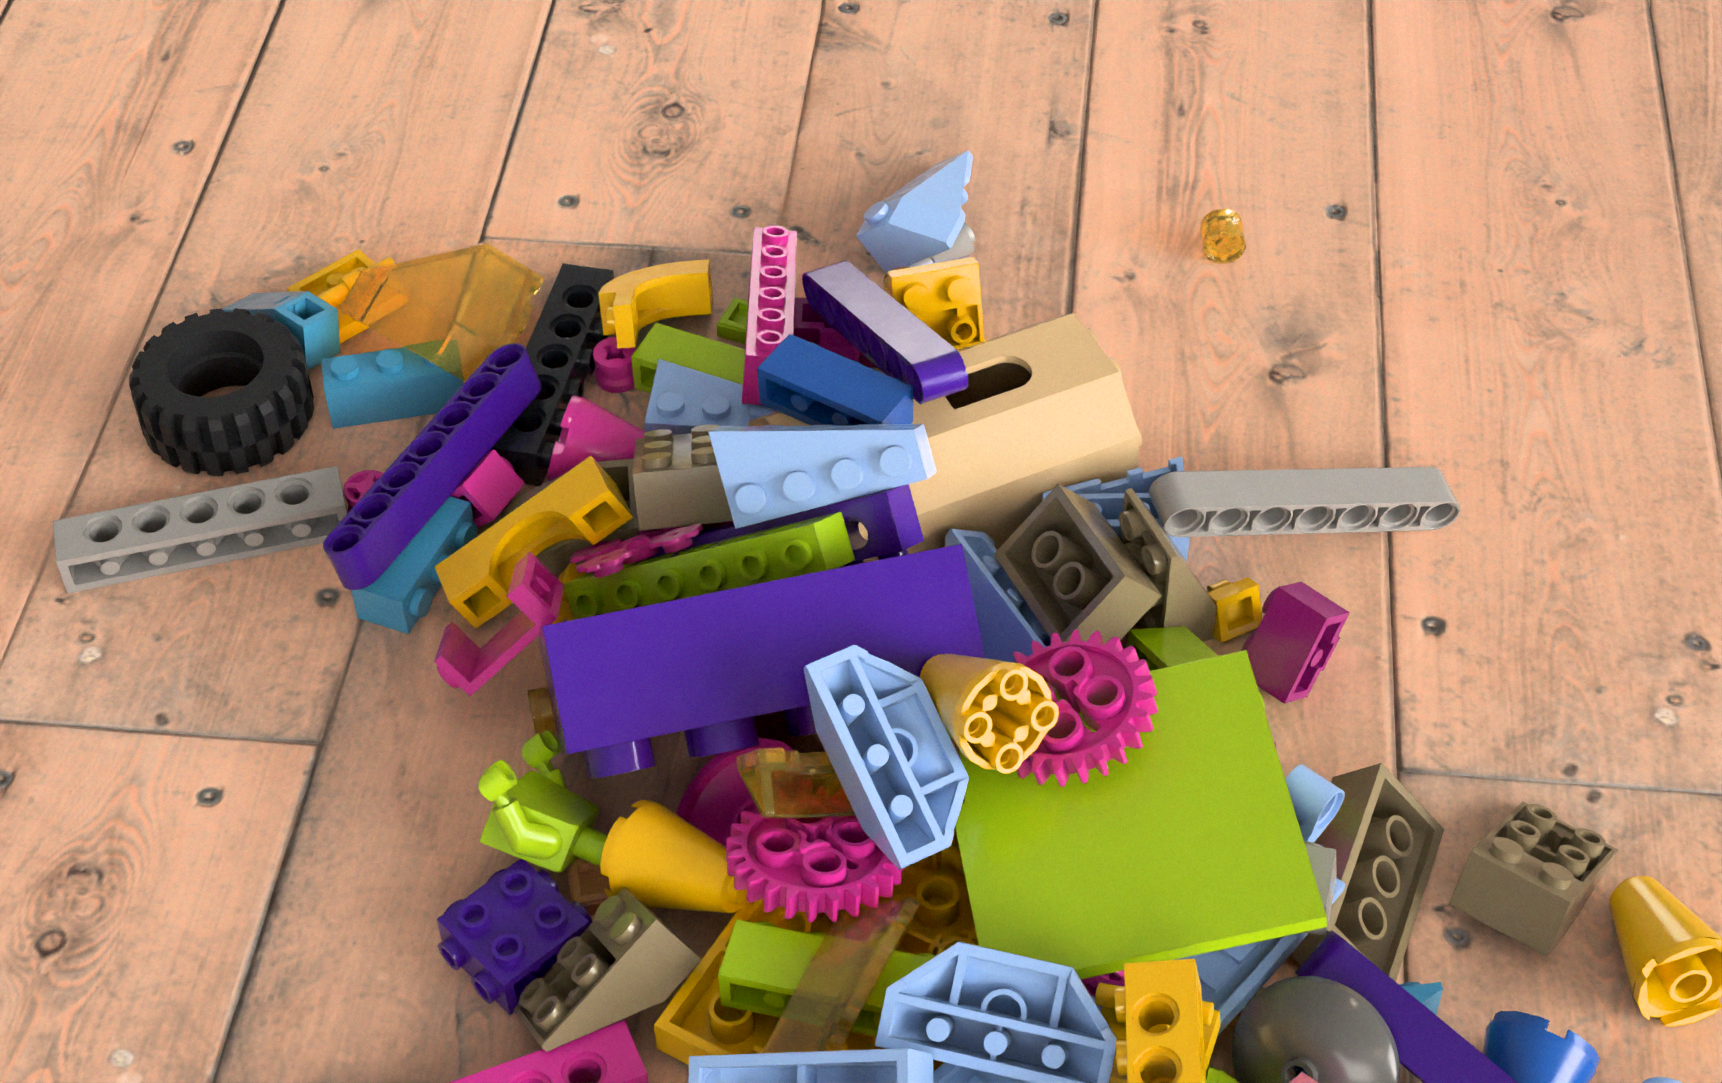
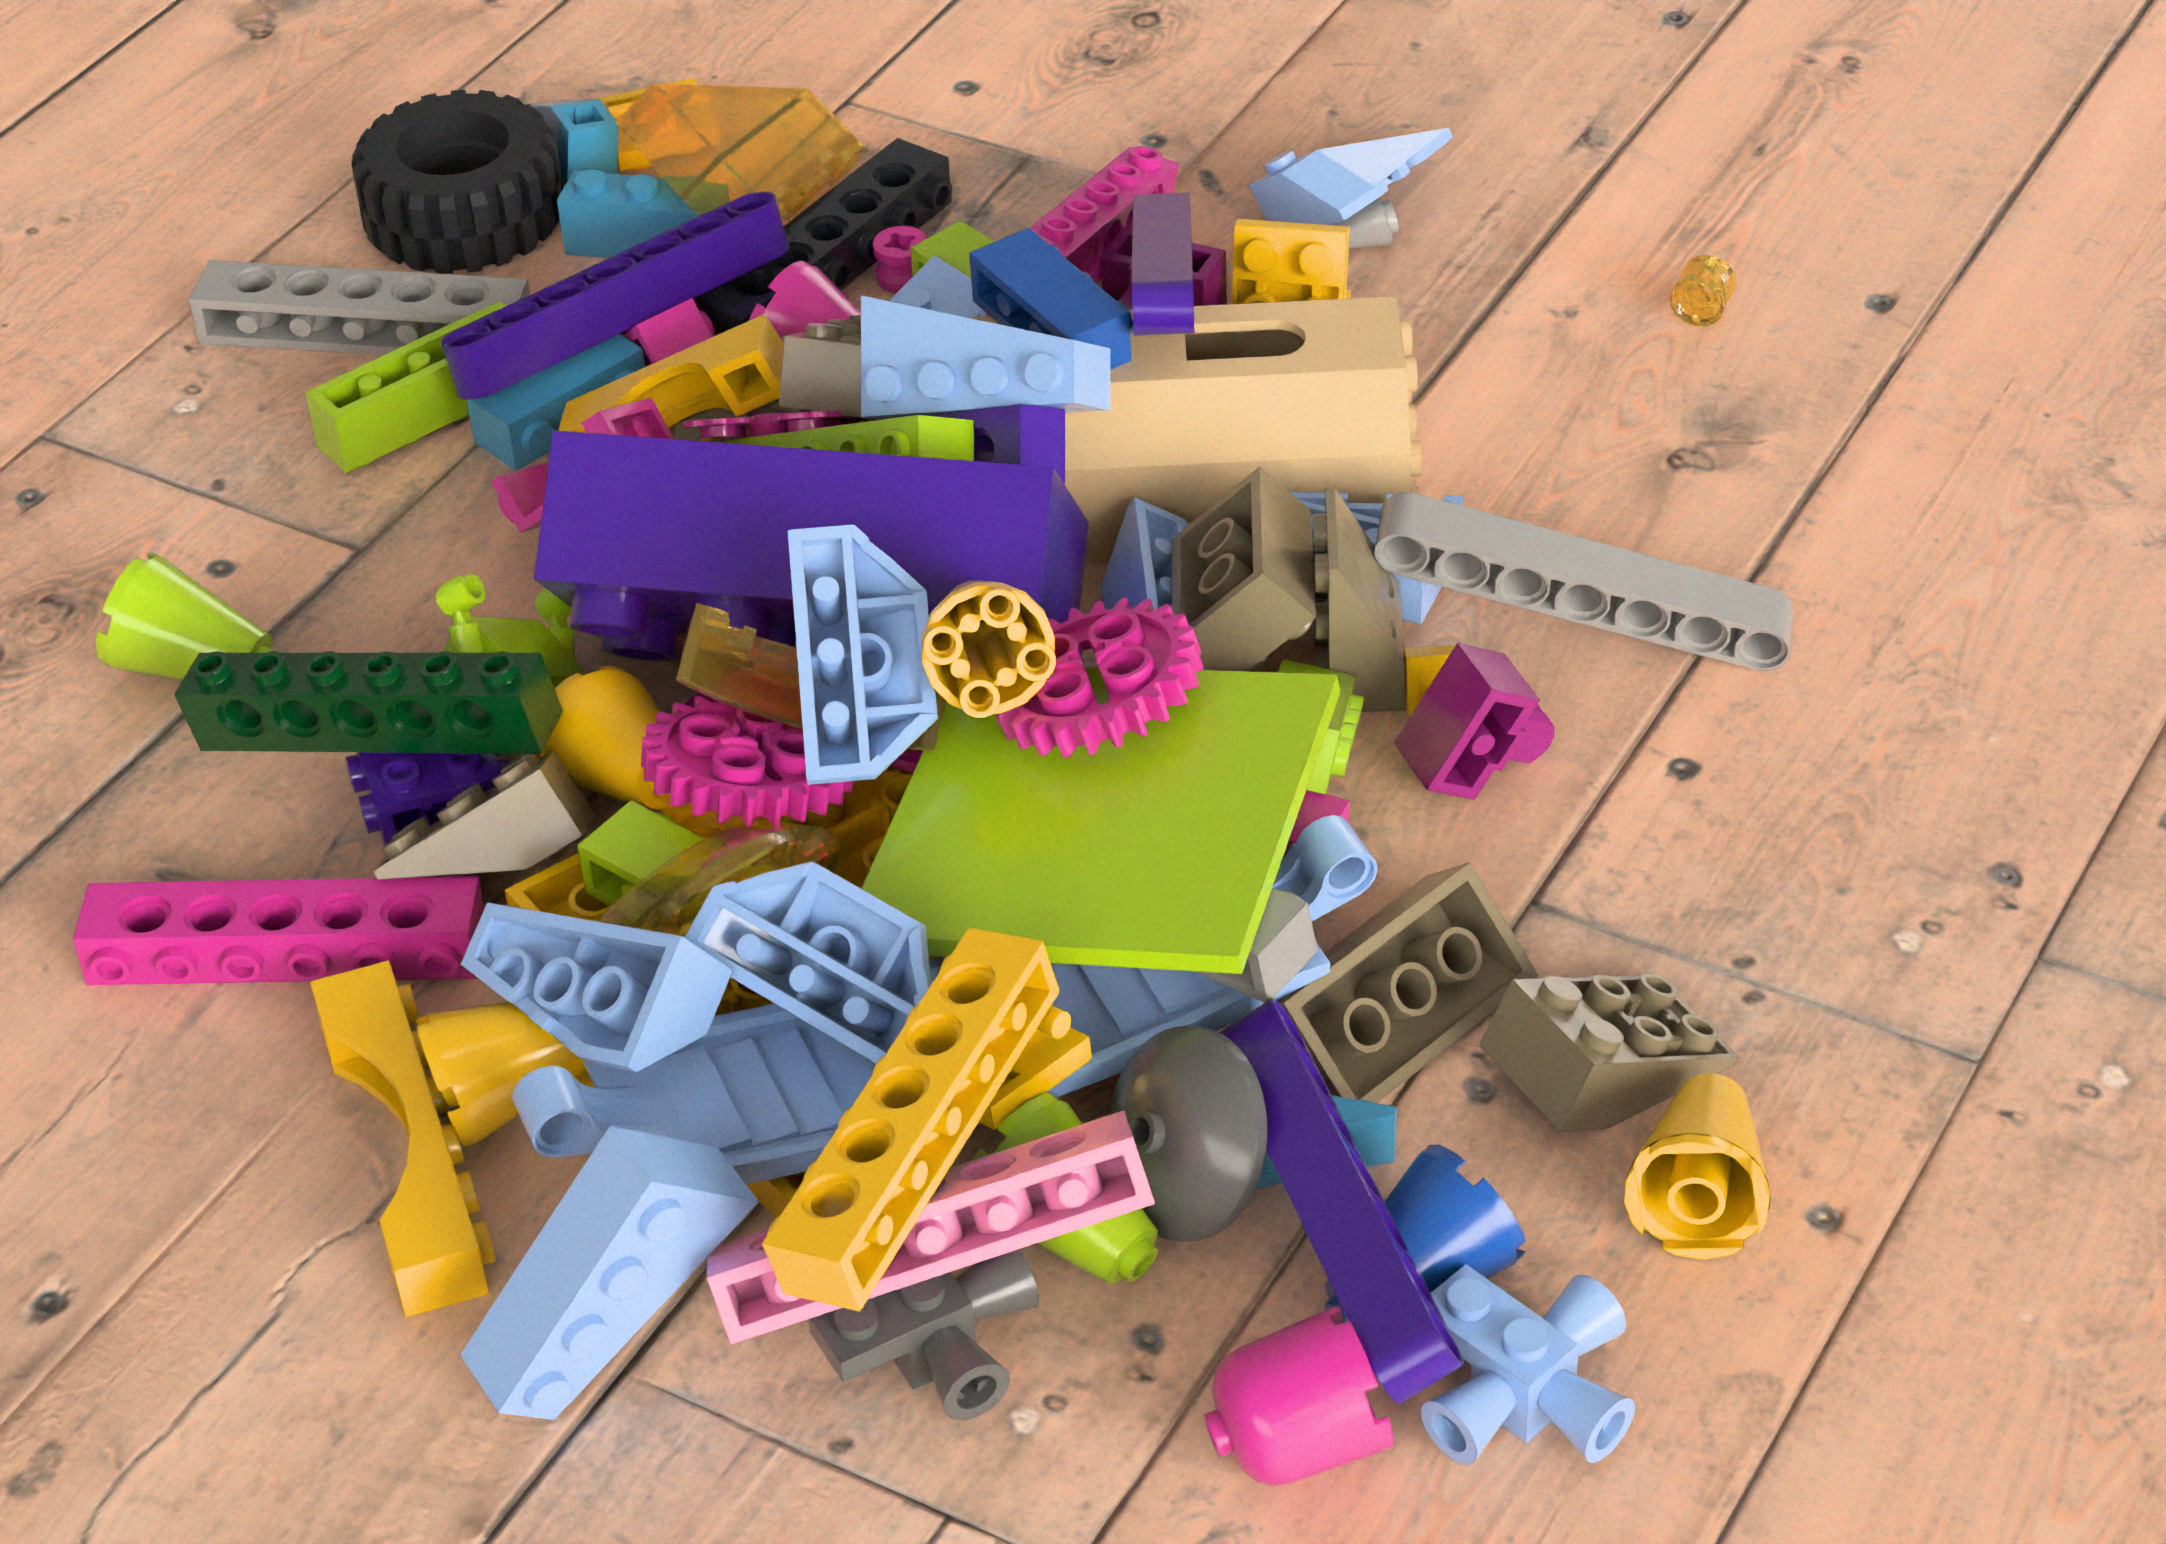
camera: 25 degrees right, 5 degrees down
(234, 871) = (169, 619): none -> lime cone
(287, 598) = (388, 400): none -> lime brick
(458, 898) = (370, 702): none -> dark green brick
(654, 295) = (976, 194): yellow arch -> none

